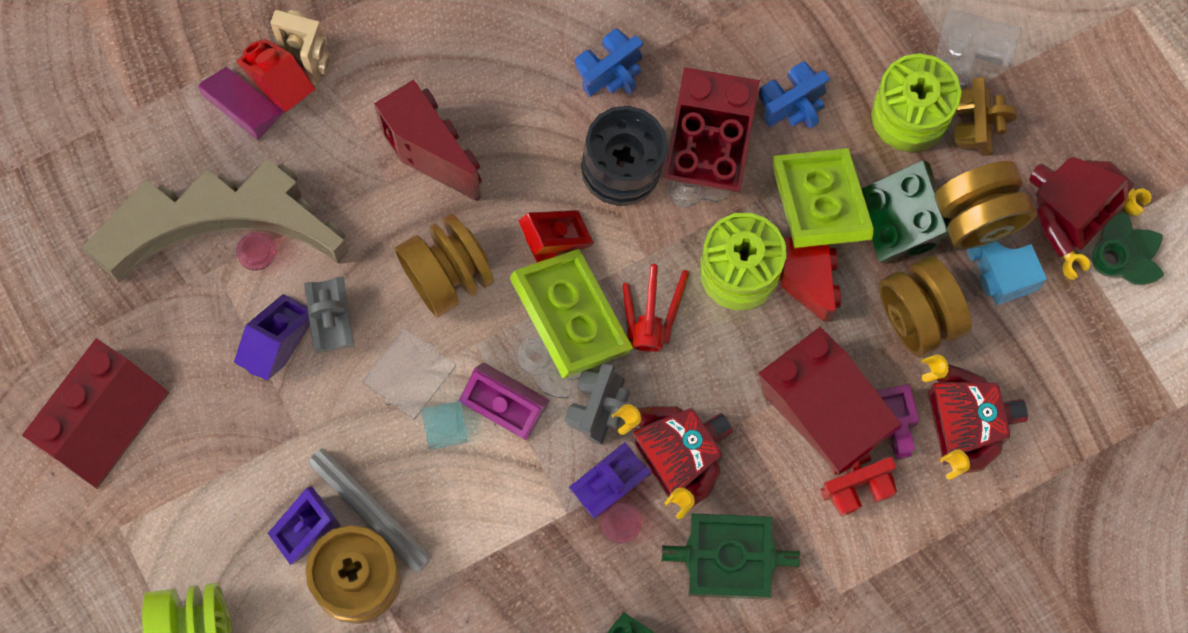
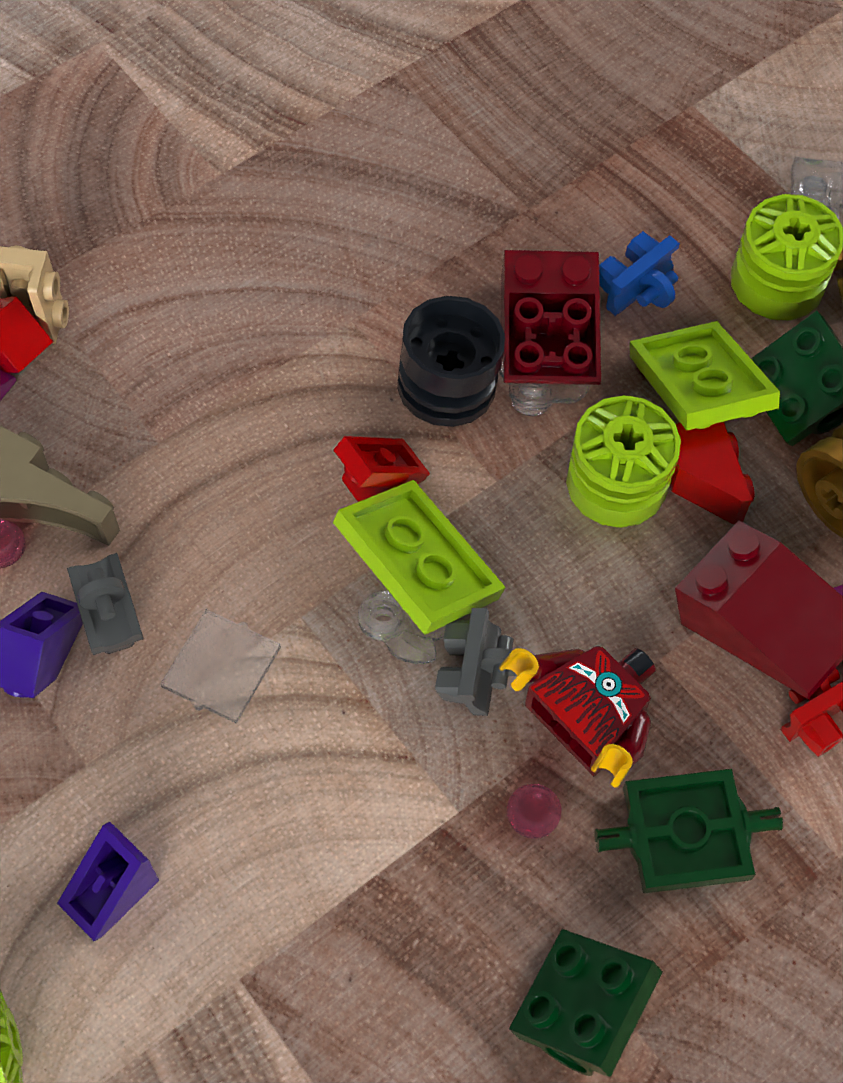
camera: 10 degrees left, 10 degrees down
(340, 554) = (162, 911): pearl gold wheel -> none
(370, 510) = (194, 849): light grey axle -> none
(425, 141) = (201, 377): dark red slope -> none
(444, 265) = (247, 518): pearl gold wheel -> none
(444, 425) = (277, 722): clear light blue plate -> none
(503, 400) = (349, 680): magenta slope -> none
(609, 480) = (509, 756): dark purple hips -> none
(616, 69) = (417, 274): blue hips -> none
(648, 333) = (521, 566): red plant -> none

